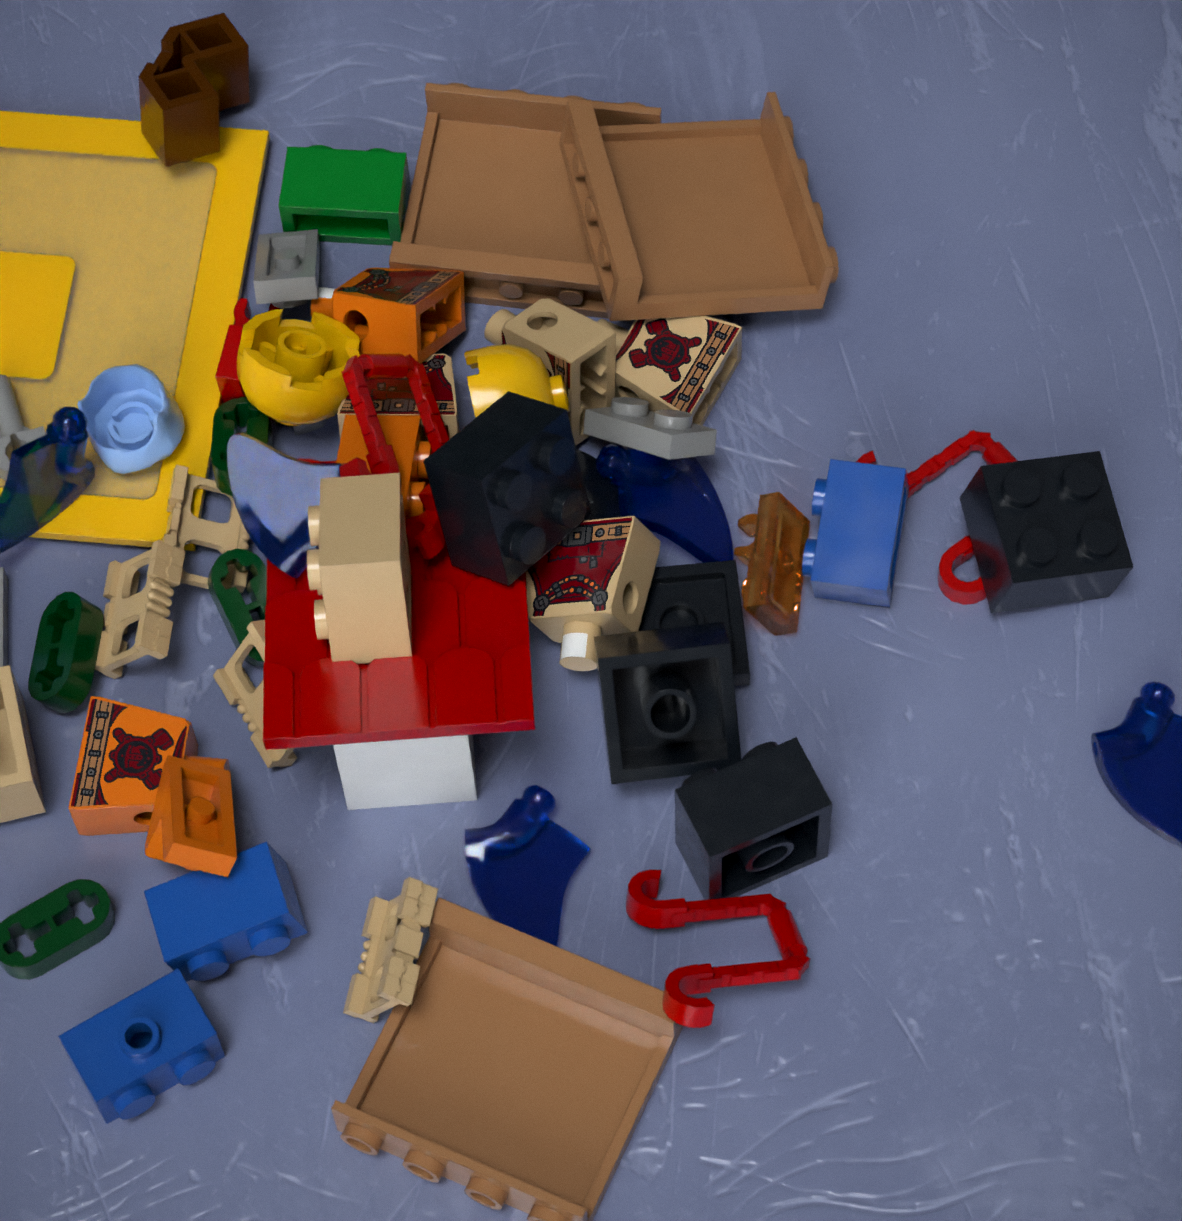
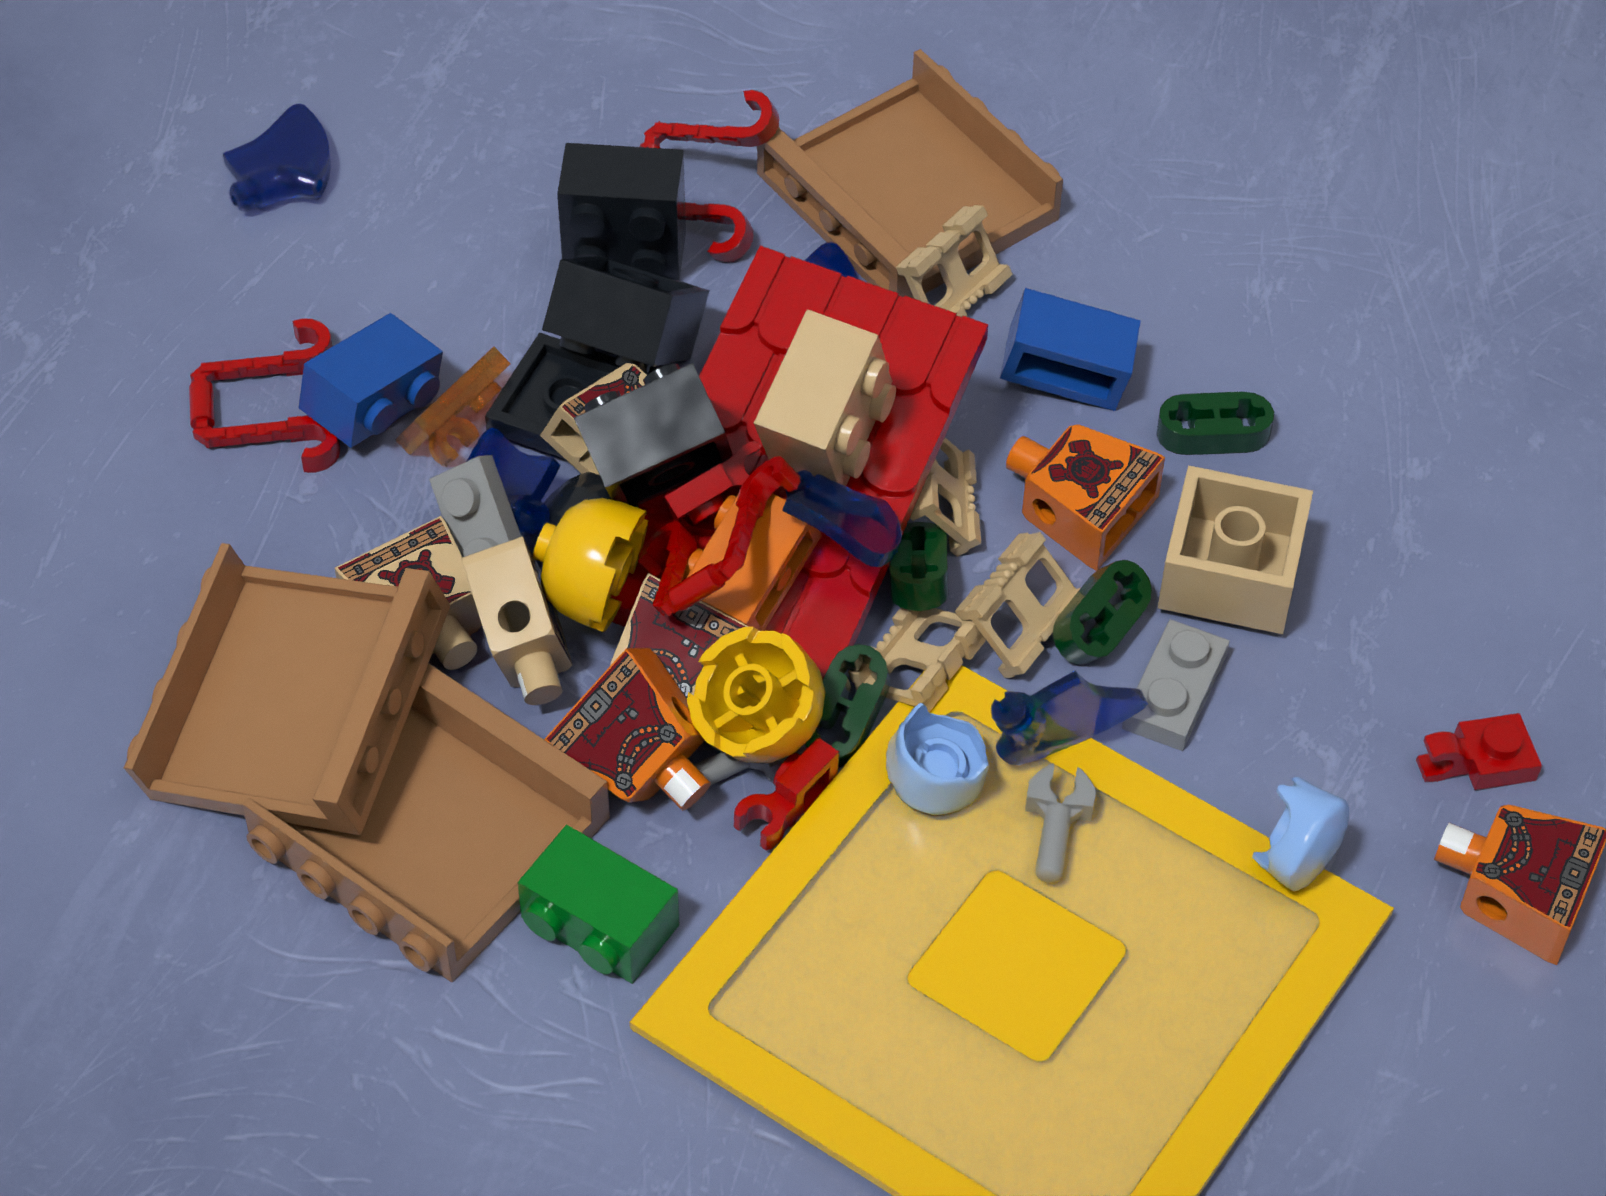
camera: 155 degrees left, 10 degrees down
(143, 1047) = (1187, 301): blue brick -> none
(192, 80) = (684, 1089): reddish brown brick -> none
(193, 818) = (1061, 383): orange slope -> none
(287, 268) = (705, 837): light grey plate -> none
(1045, 531) = (227, 306): black brick -> none

